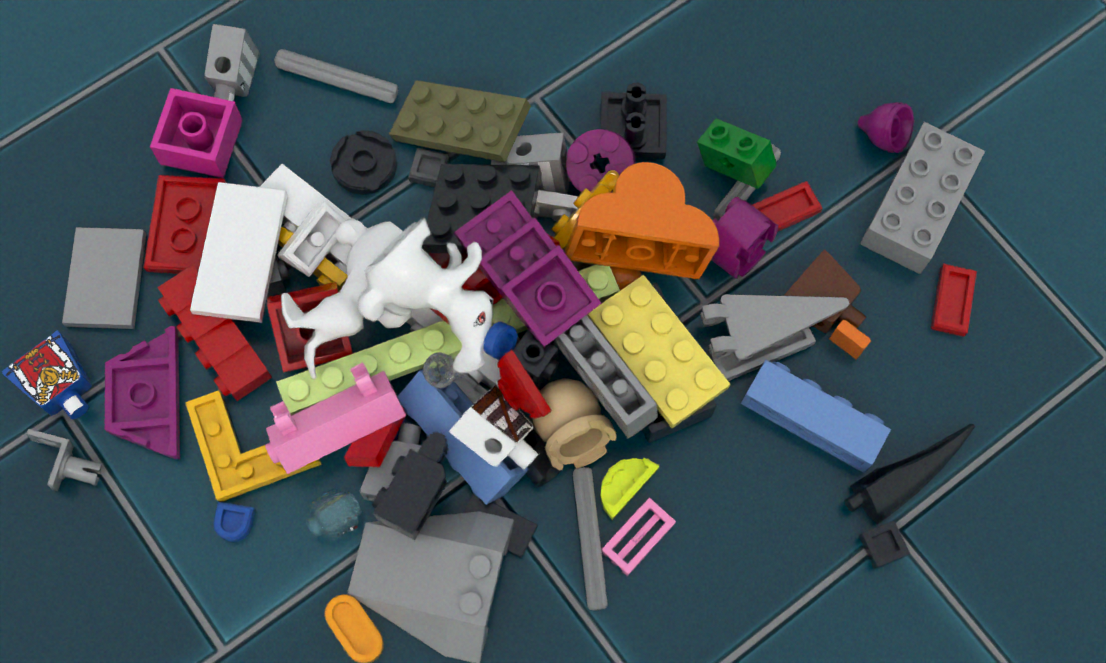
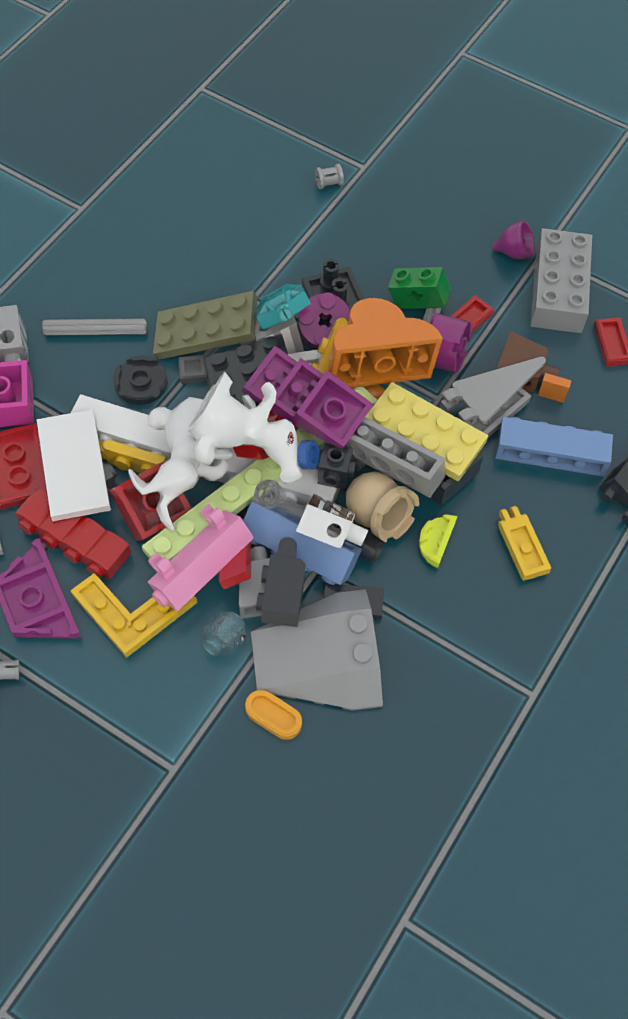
camera: 20 degrees left, 10 degrees down
(233, 521) = (143, 668): blue tile -> none
(312, 239) = (127, 437): white slope -> none
(519, 388) = (335, 486): red tile -> none
(552, 129) = (281, 305): none -> teal plate
(589, 539) = (427, 586): light grey axle -> none
(617, 559) = (454, 593): bright pink tile -> none
(724, 527) = (523, 544): none -> yellow hinge

